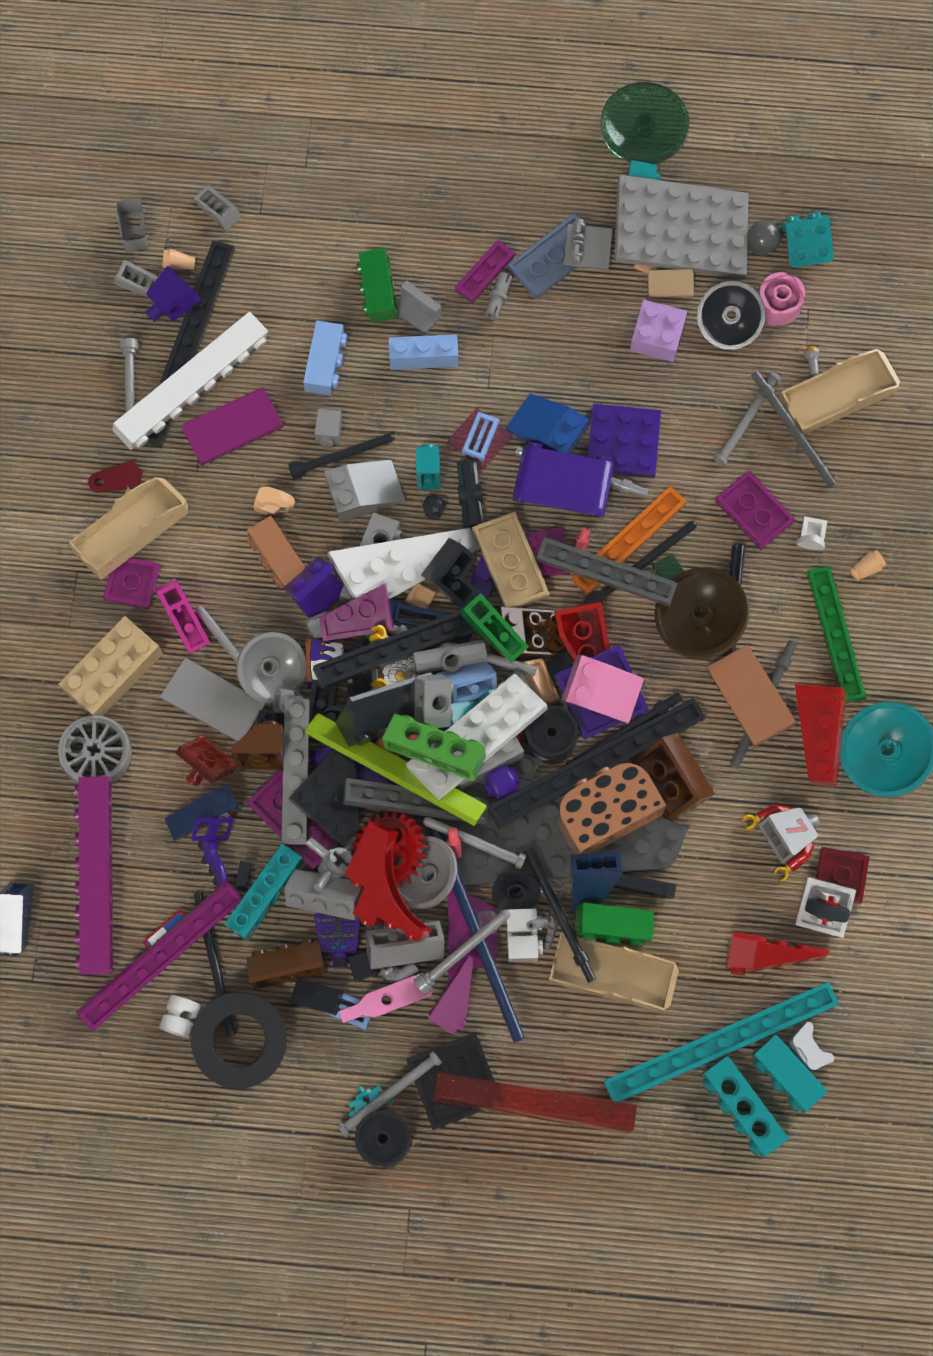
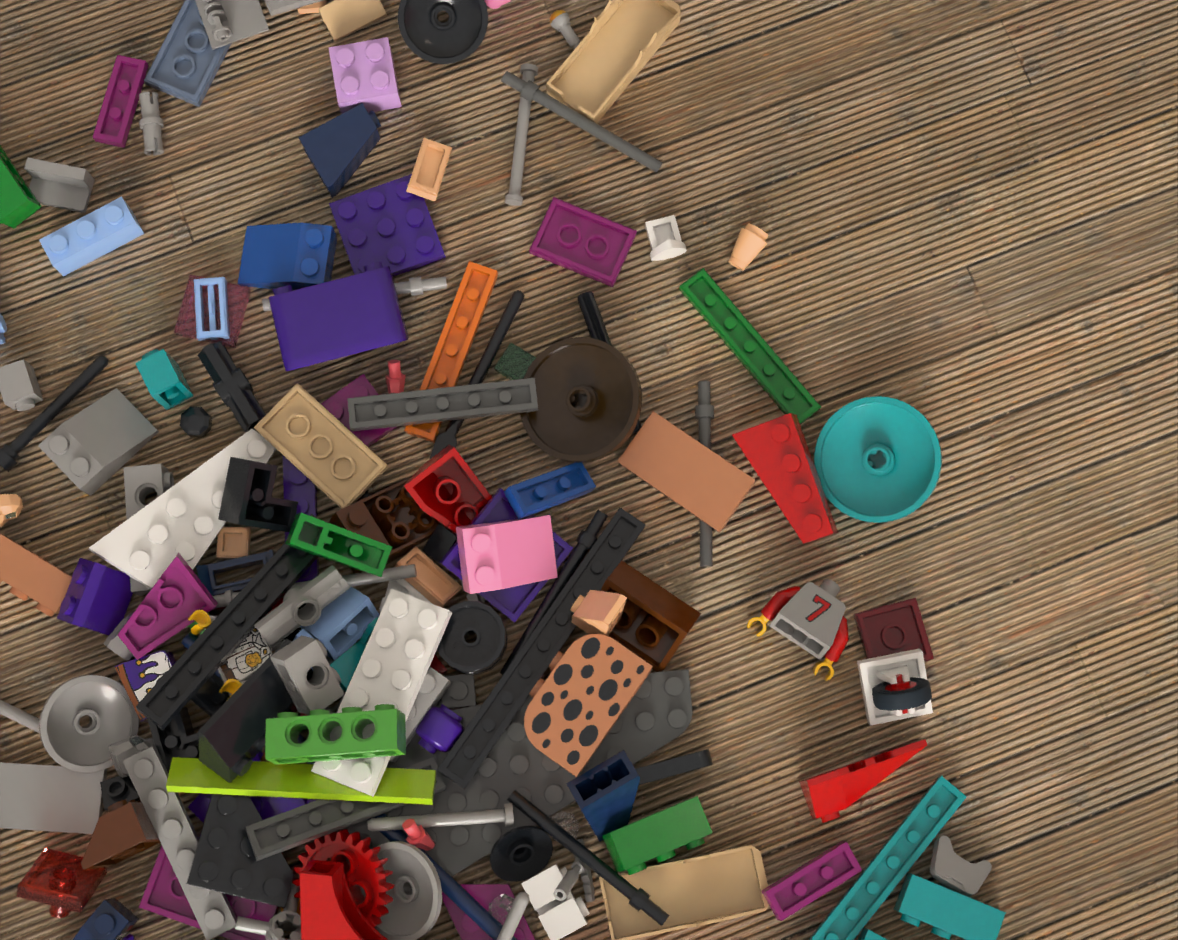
camera: 25 degrees left, 5 degrees up
(620, 369) = (341, 146): none -> dark blue slope
(647, 754) = (598, 611): none -> light nougat slope
(652, 662) = (549, 490): none -> blue plate
(672, 412) = (429, 169): none -> light nougat tile
(704, 1006) = (811, 880): none -> magenta plate

